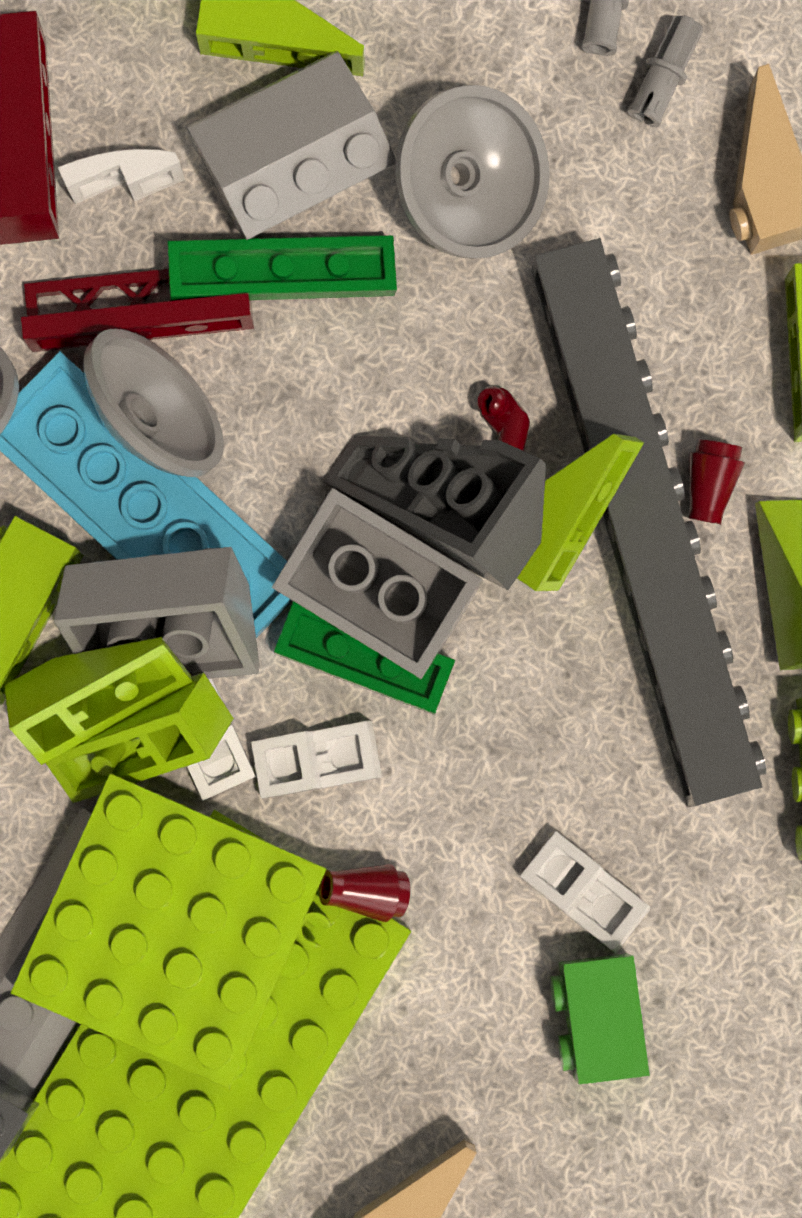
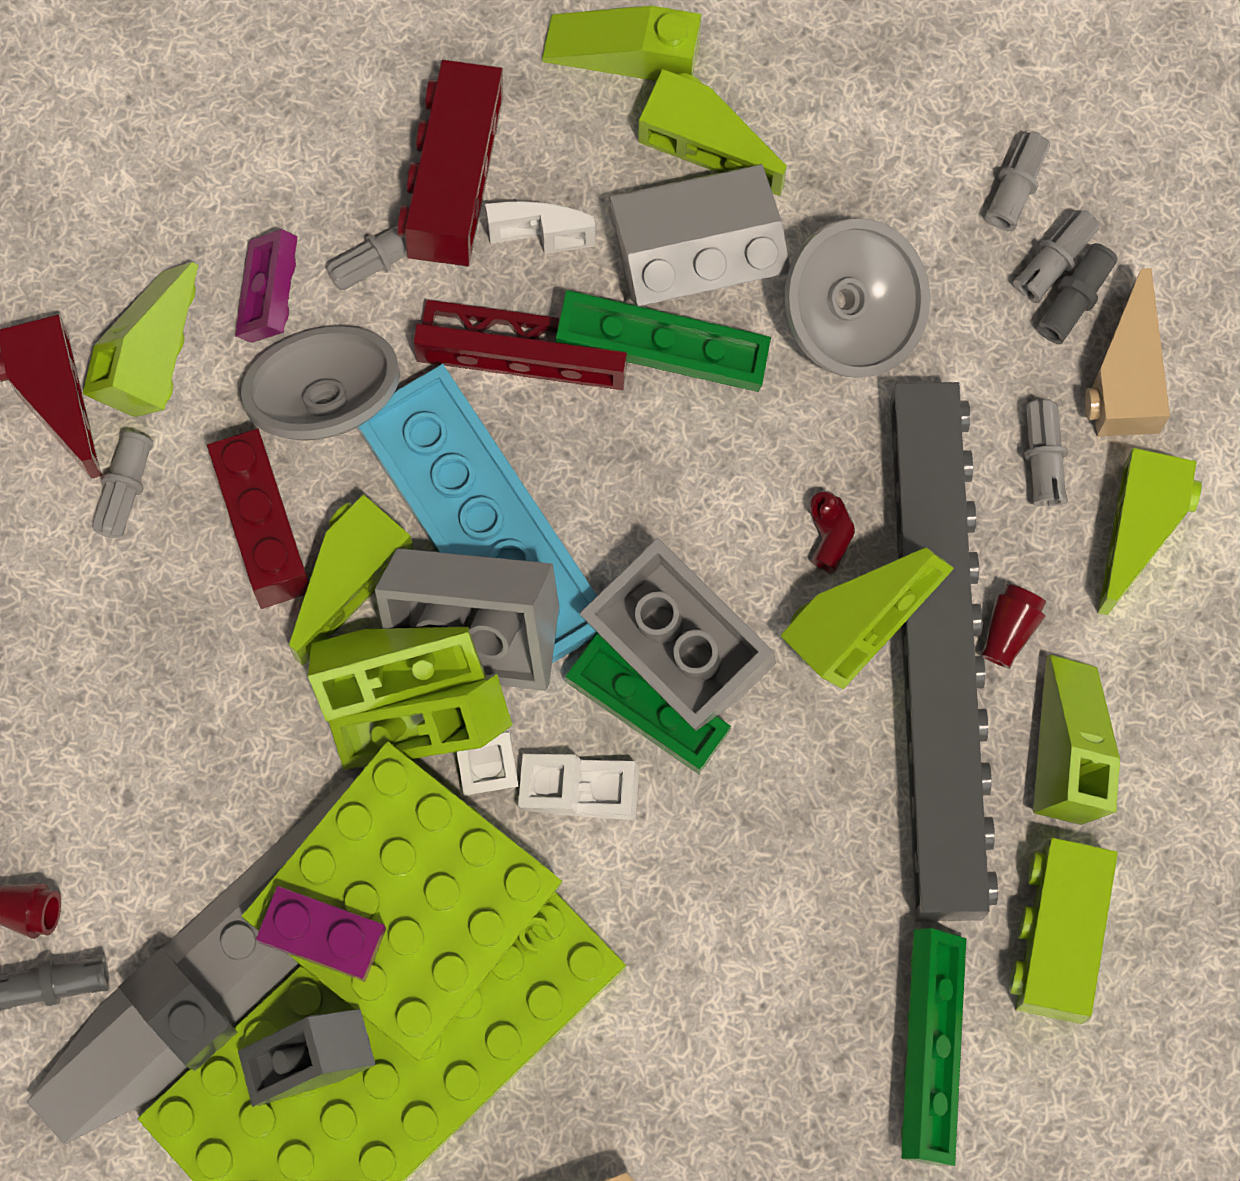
camera: 15 degrees right, 10 degrees down
(96, 992) = (321, 933): none -> magenta plate
(116, 1117) = (306, 1056): none -> dark grey slope
(152, 404) = (513, 426): light grey dish -> none
(368, 891) = (595, 915): dark red cone -> none
(459, 499) = (772, 578): dark grey wedge -> none
(585, 892) = (799, 973): white slope -> none
(601, 1018) = (784, 1092): bright green brick -> none
(696, 107) = (1077, 293): none -> dark grey pin
(704, 287) = (1046, 453): none -> light grey axle
(737, 935) = (934, 1048): none -> green plate

